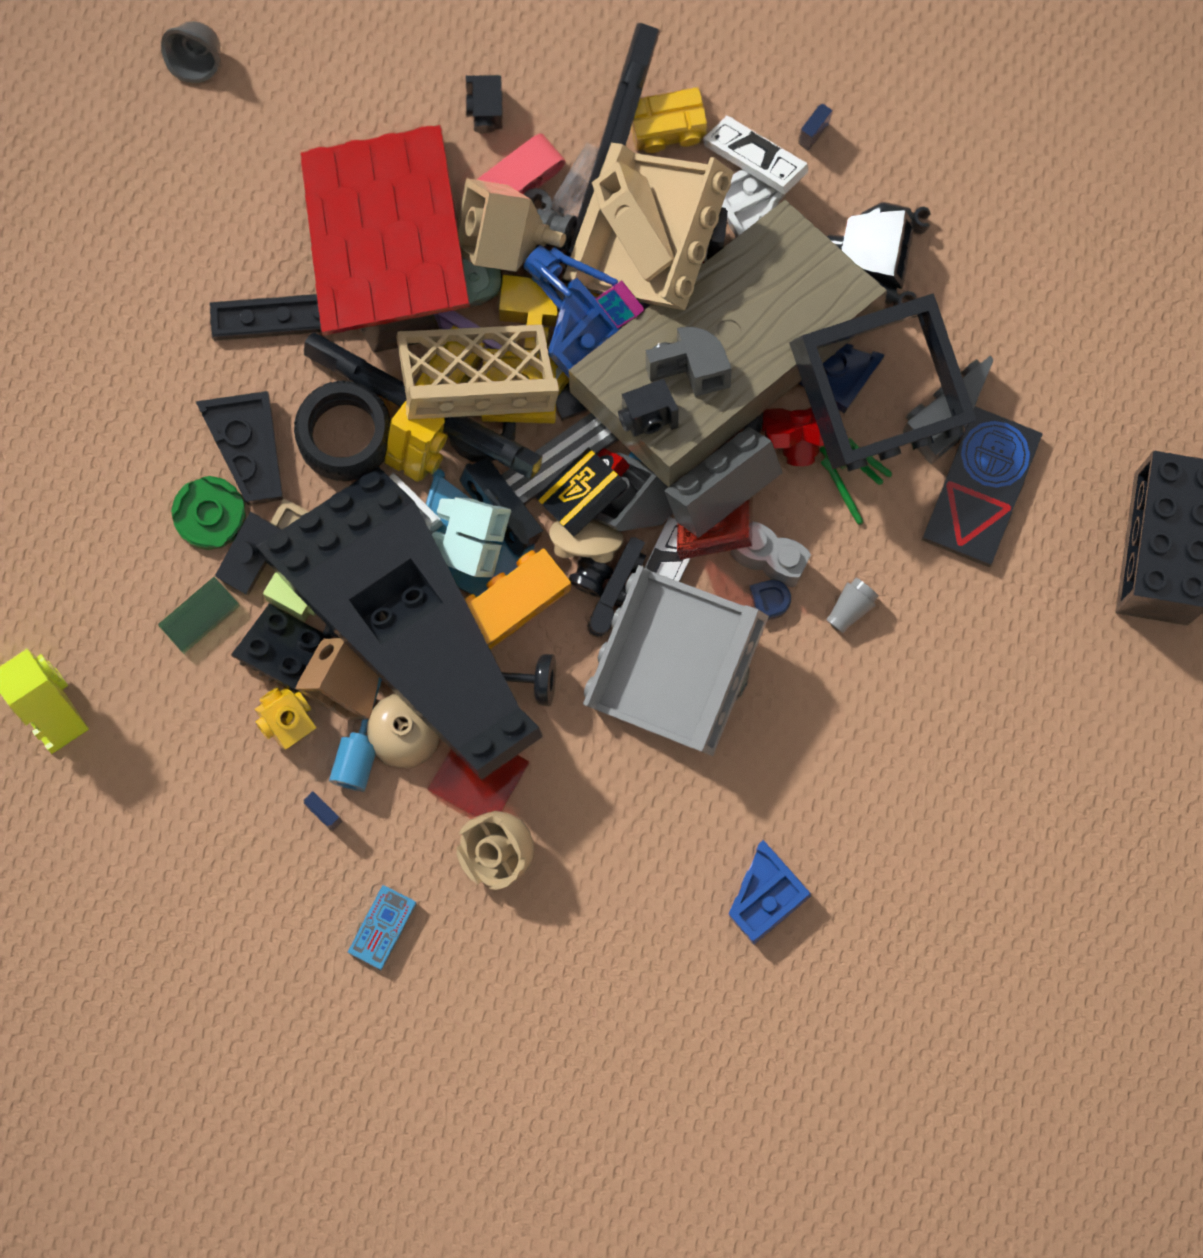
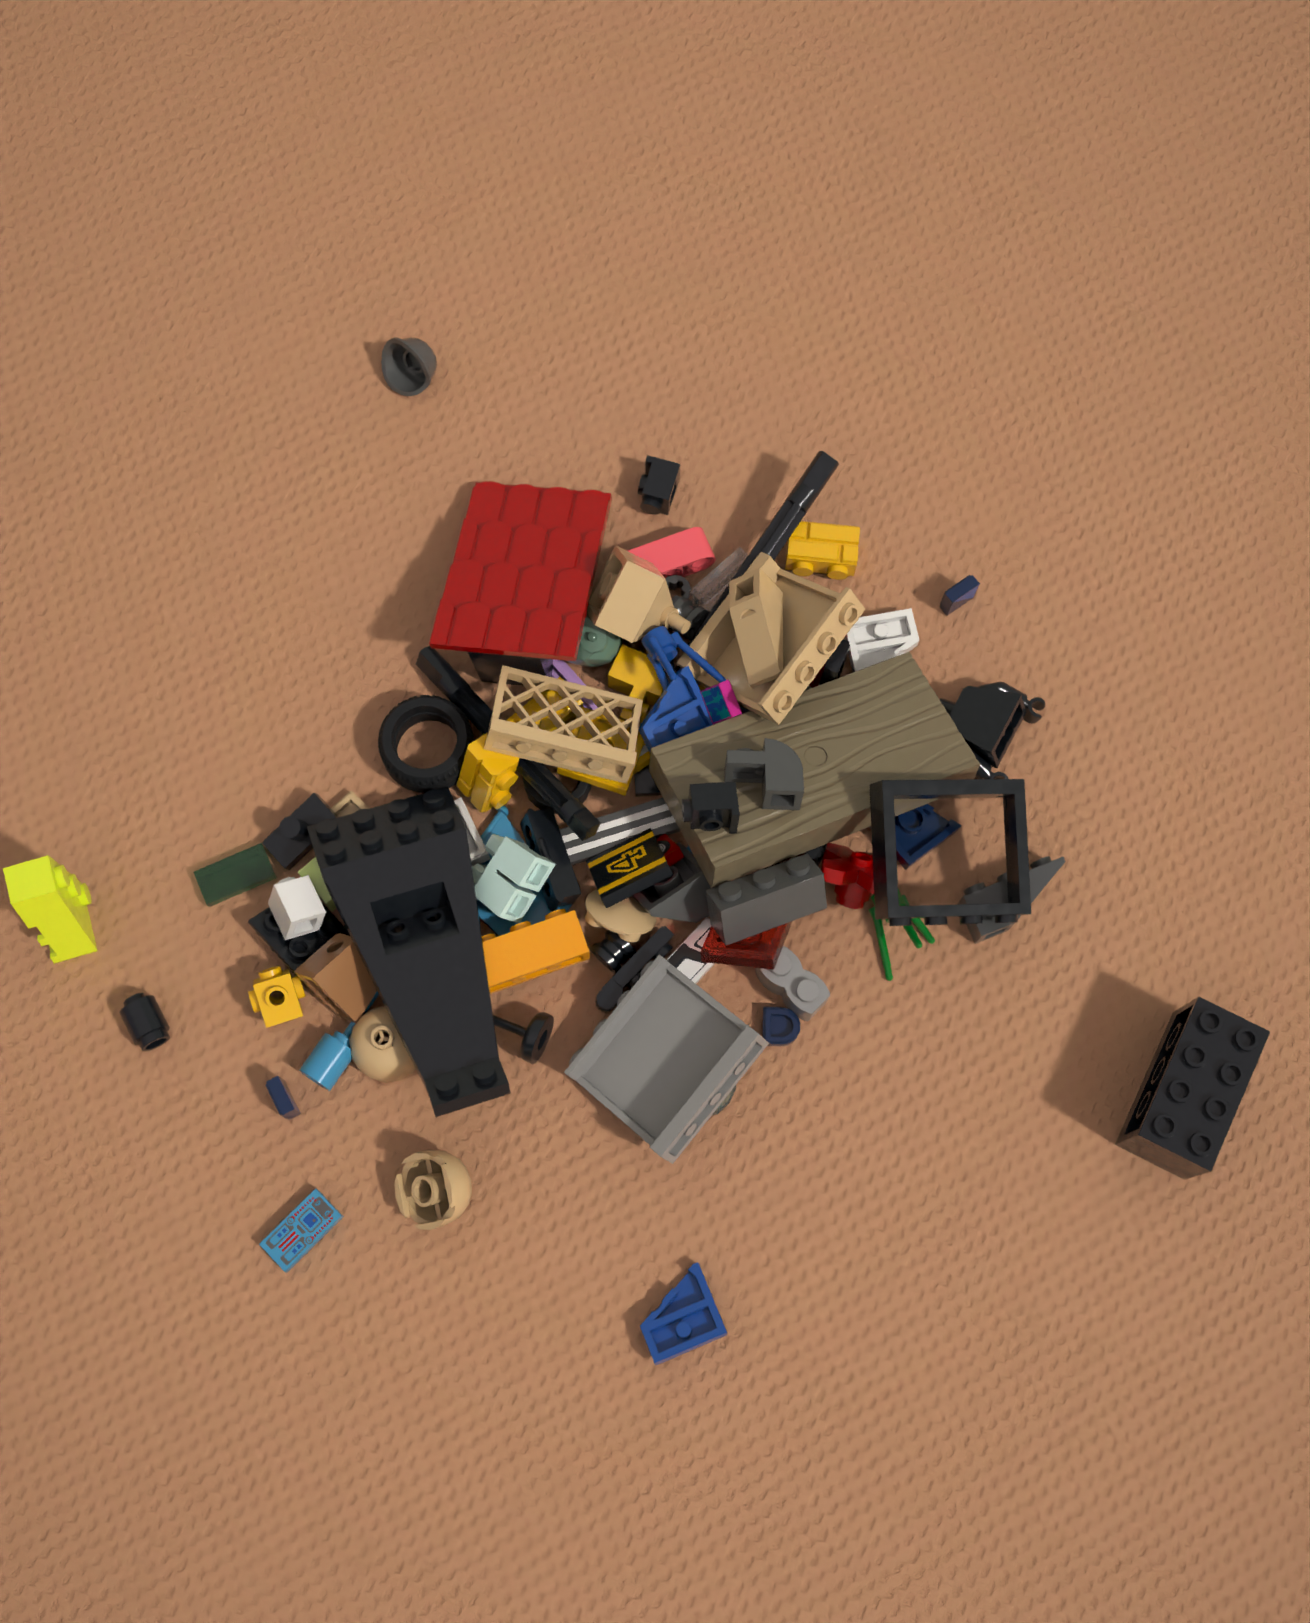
camera: 20 degrees right, 5 degrees down
(163, 781) = (145, 1021): none -> black brick
(208, 513) = (278, 782): green tile -> none
(247, 442) = (336, 729): black wing -> none
(264, 317) = (388, 619): black tile -> none
(274, 626) = (296, 907): none -> white brick
(469, 793) = (443, 1132): clear red tile -> none
(756, 155) = (895, 604): white tile -> none
(852, 604) = (856, 1056): light grey cone -> none
(982, 487) = (1018, 981): black tile -> none

